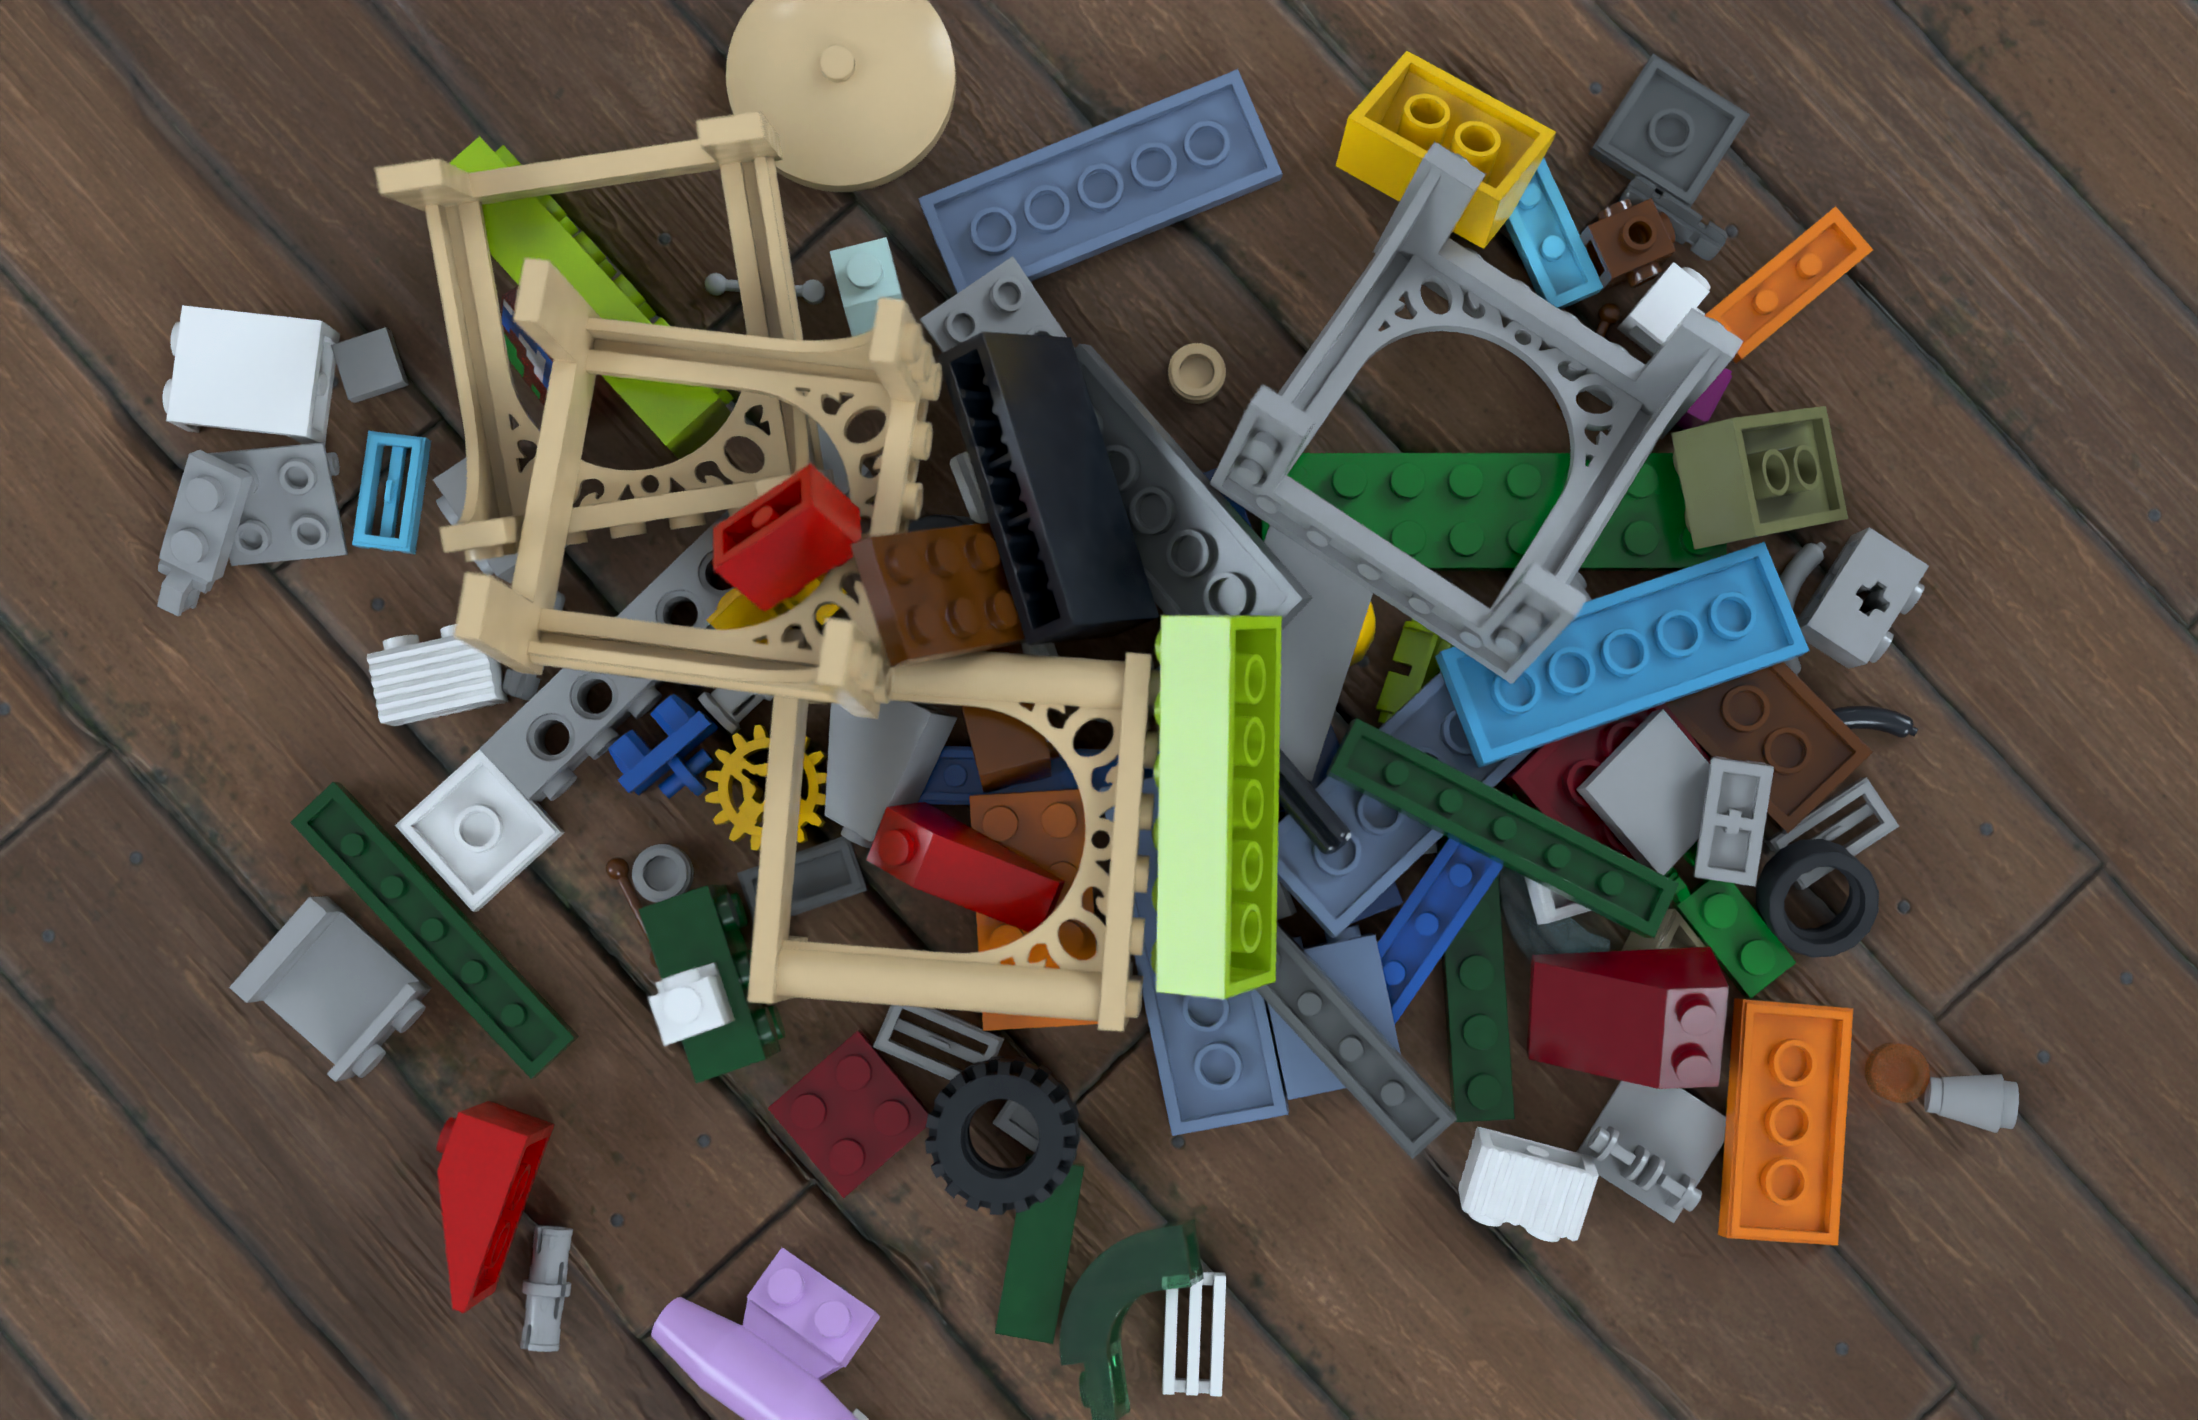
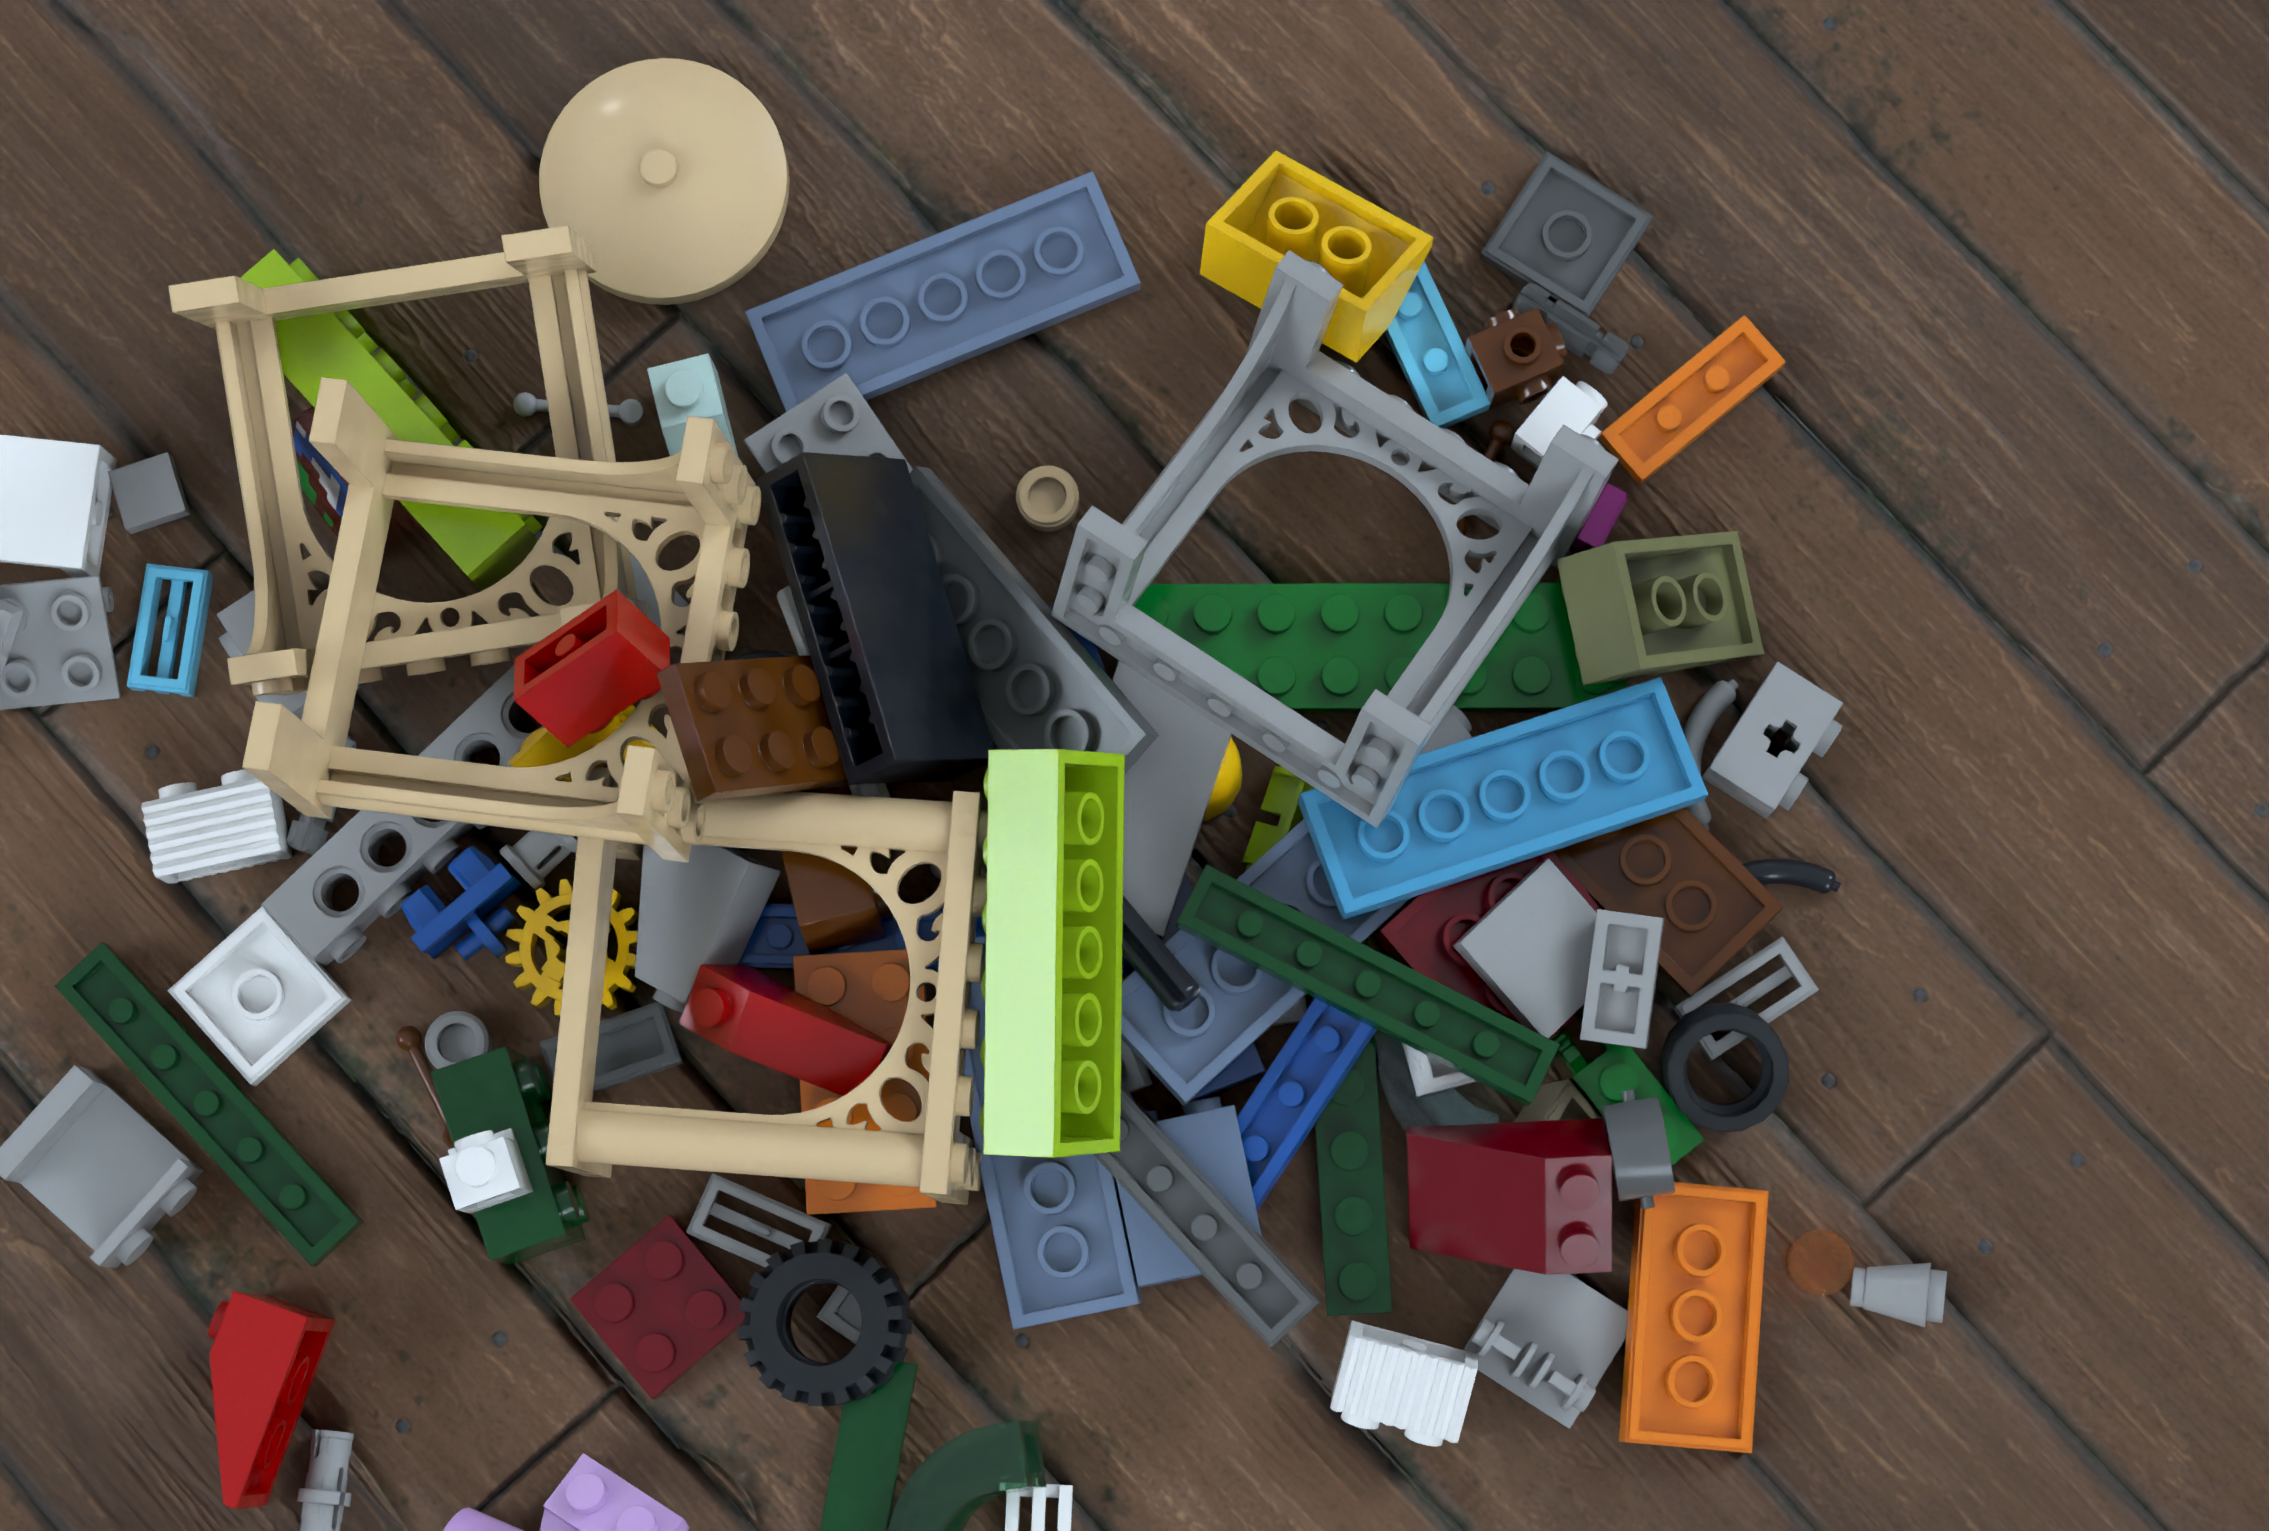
camera: 10 degrees right, 5 degrees down
(1751, 974) = (1638, 1149): none -> dark grey piece

